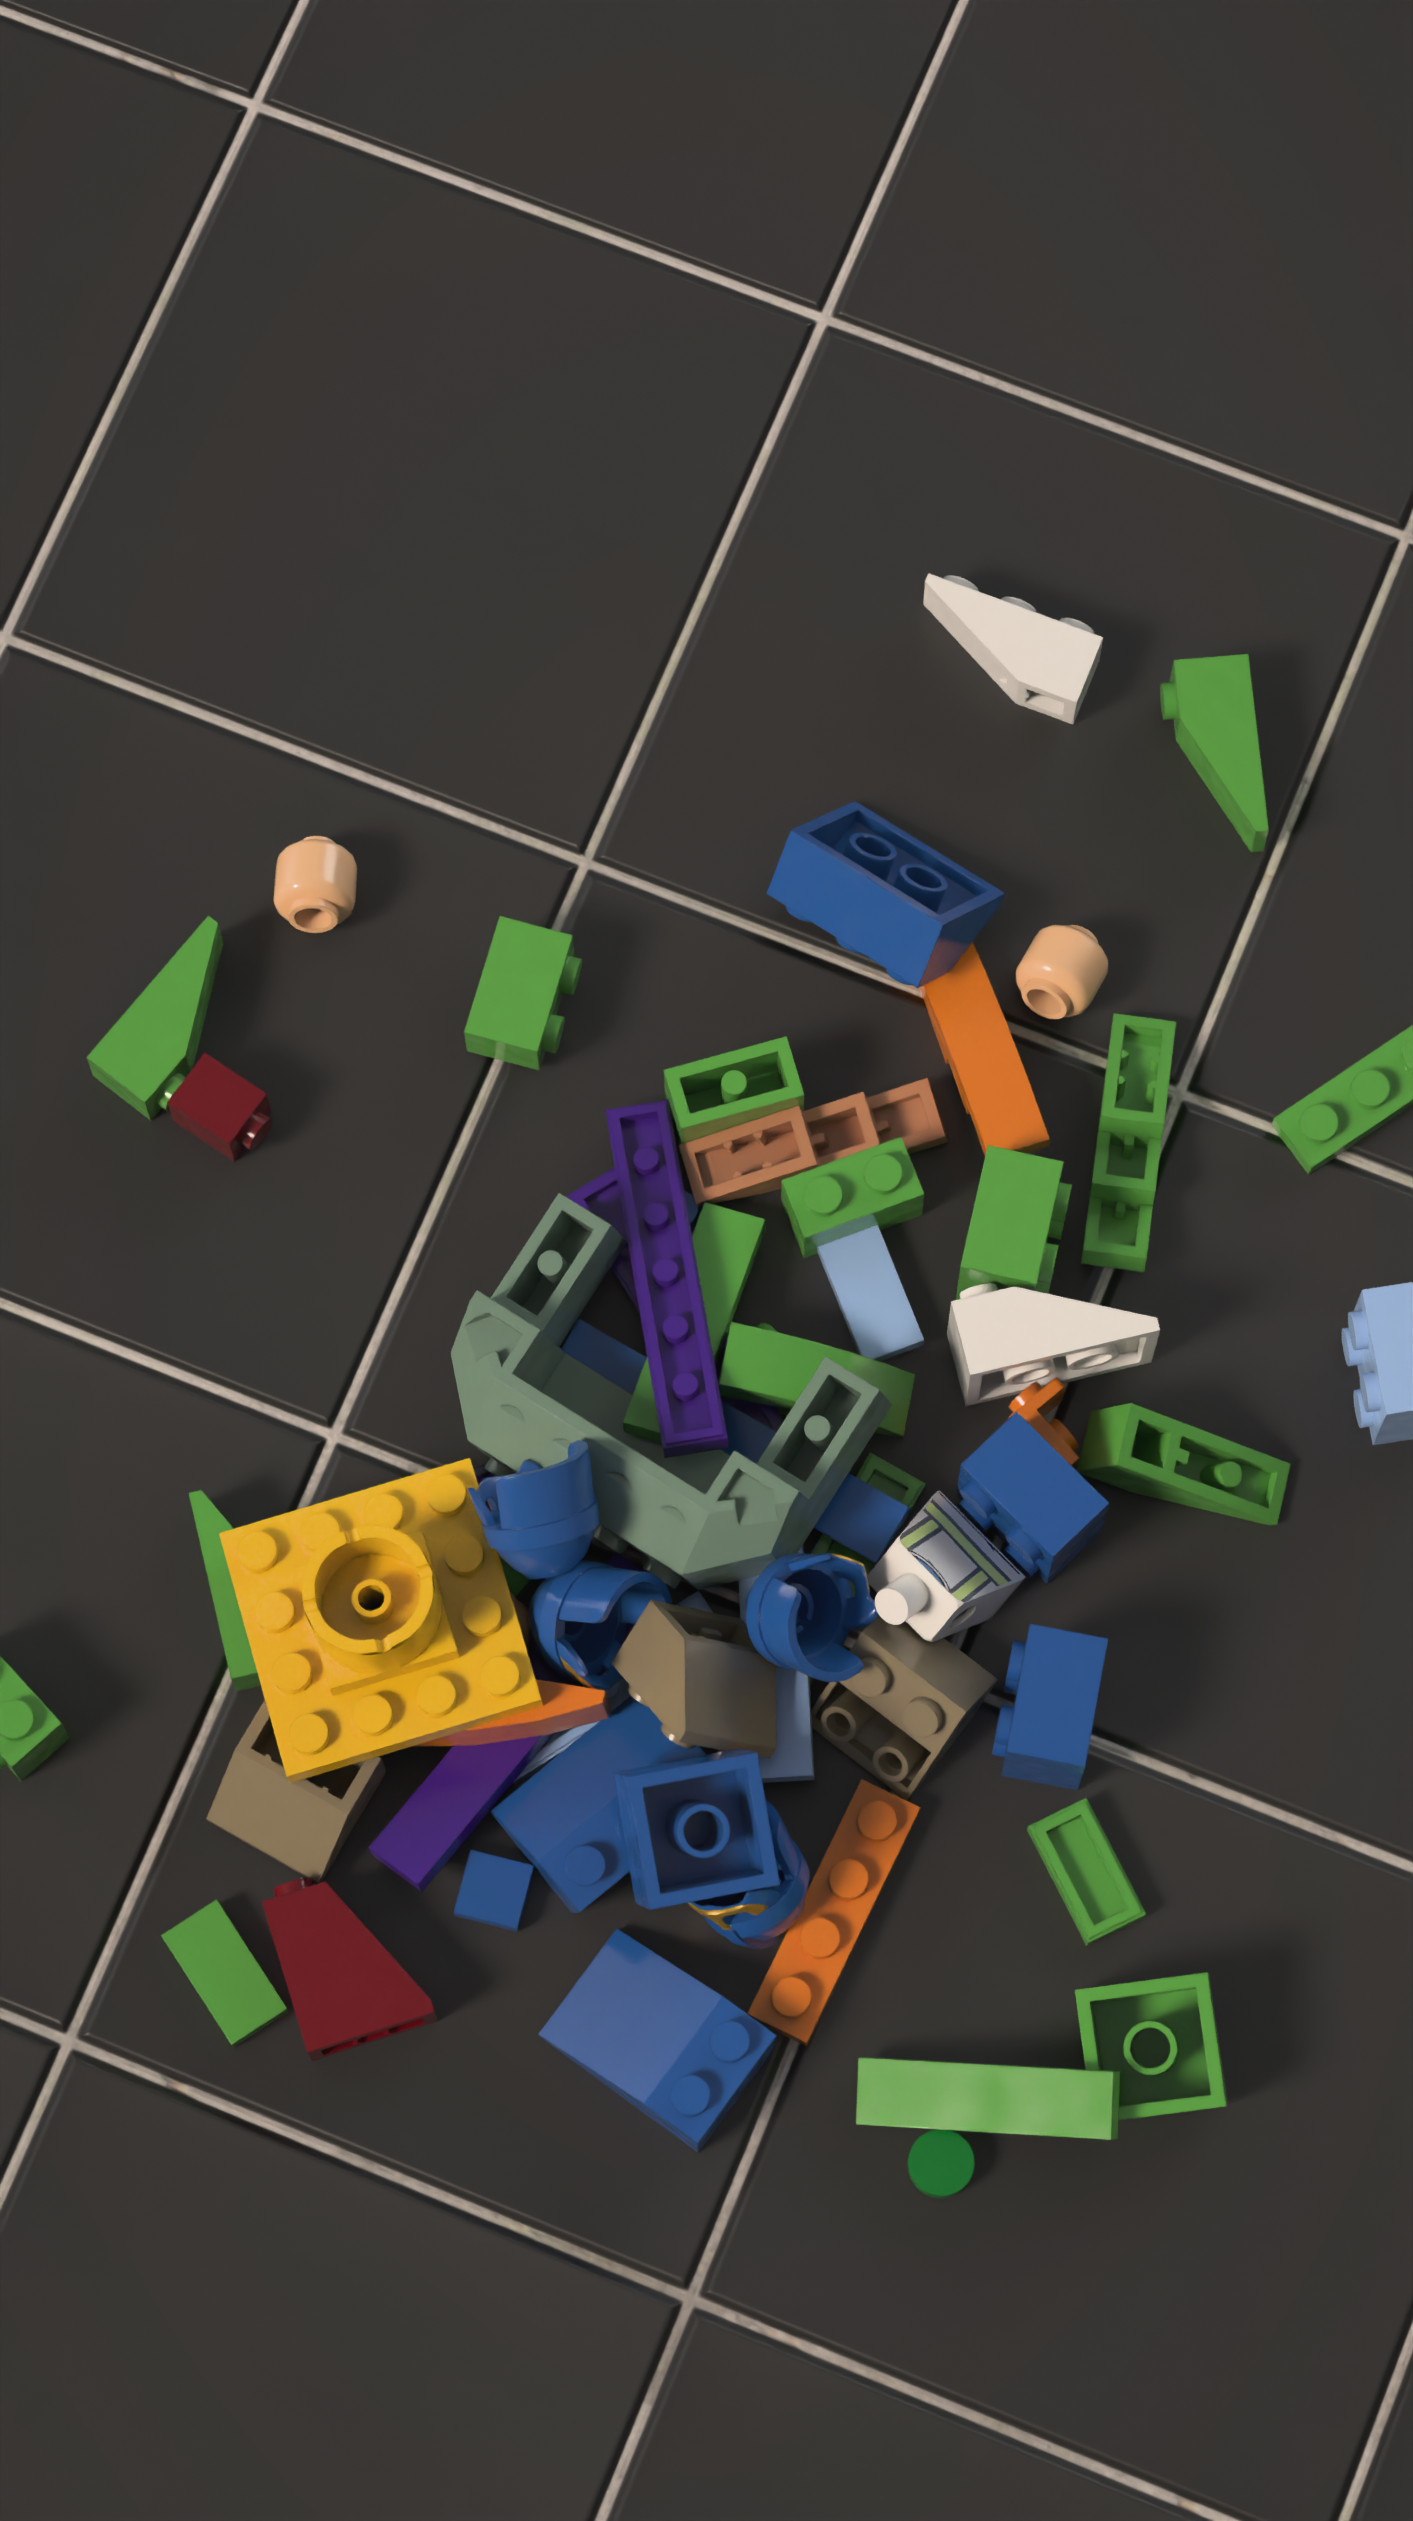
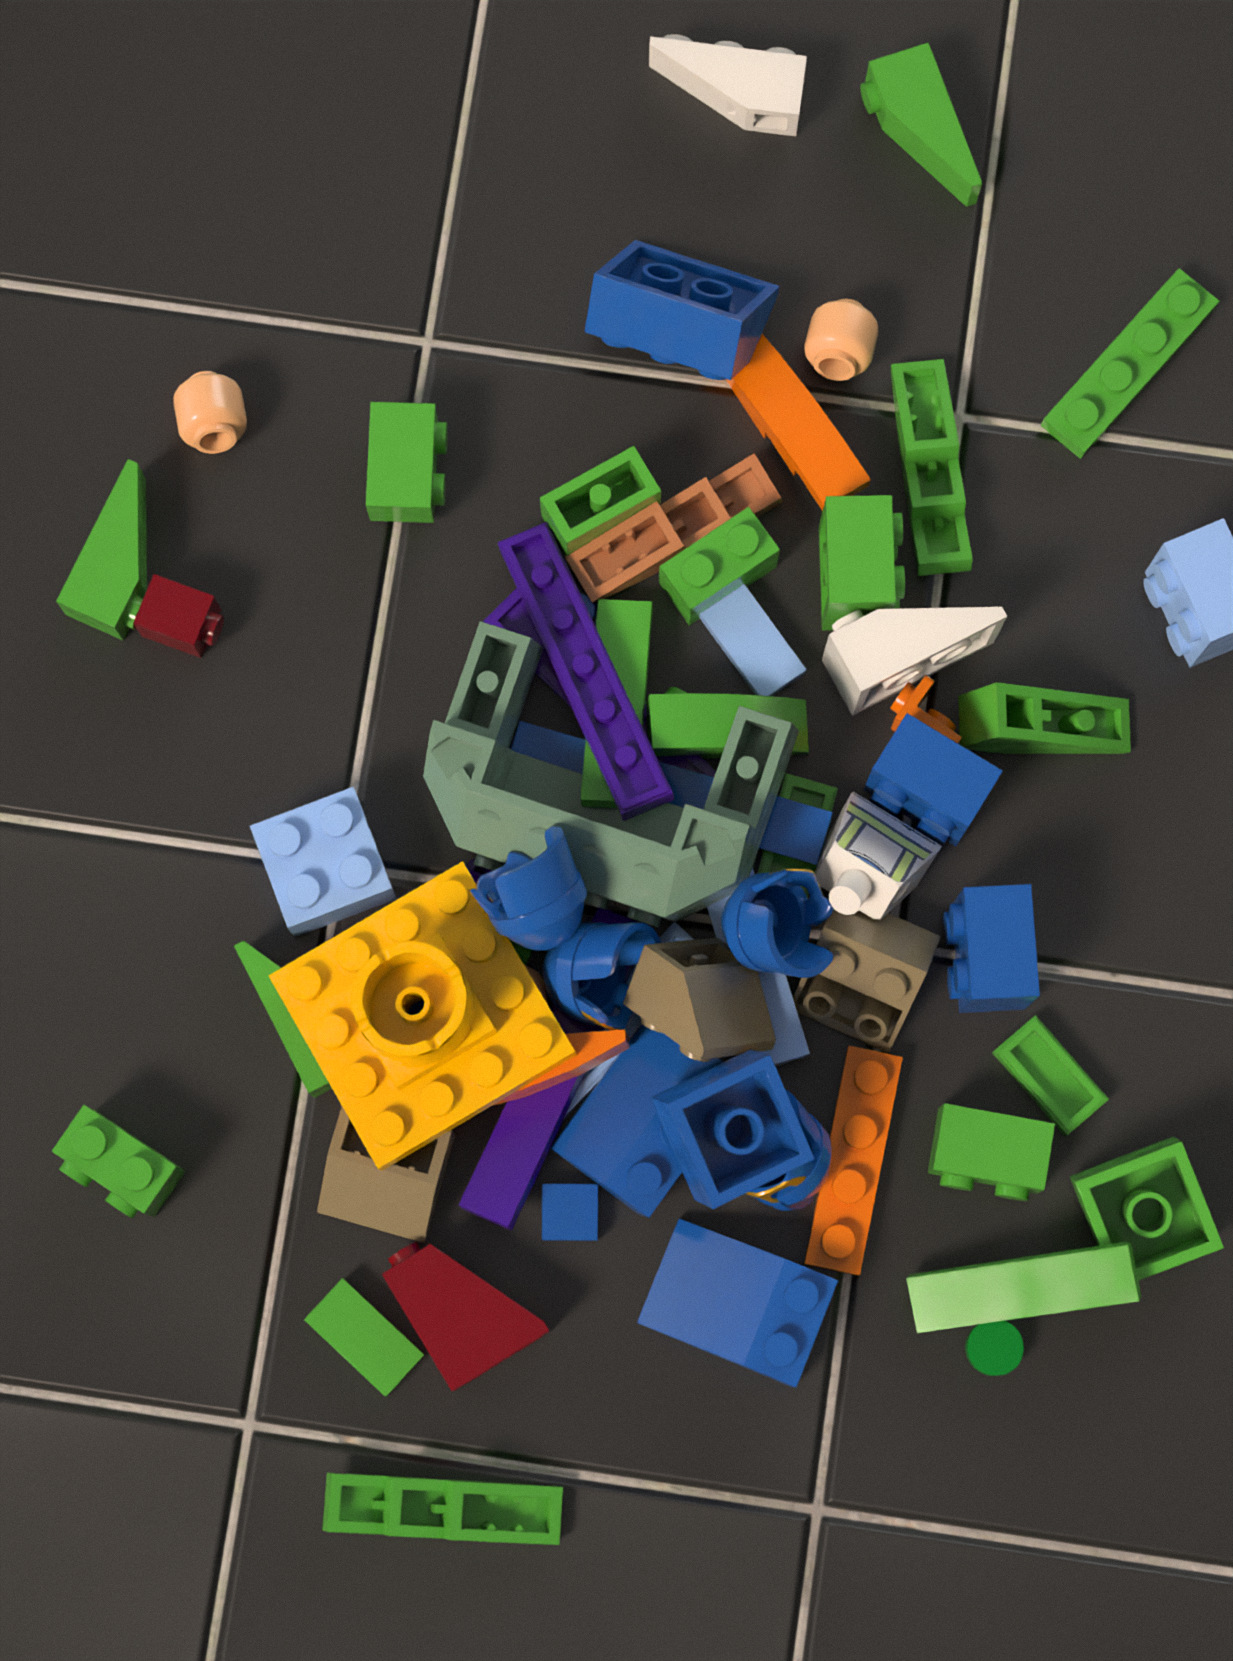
camera: 15 degrees left, 5 degrees up
(264, 2186) = (442, 1508): none -> bright green slope
(313, 1424) = (323, 862): none -> light blue brick
(992, 1938) = (990, 1150): none -> bright green brick

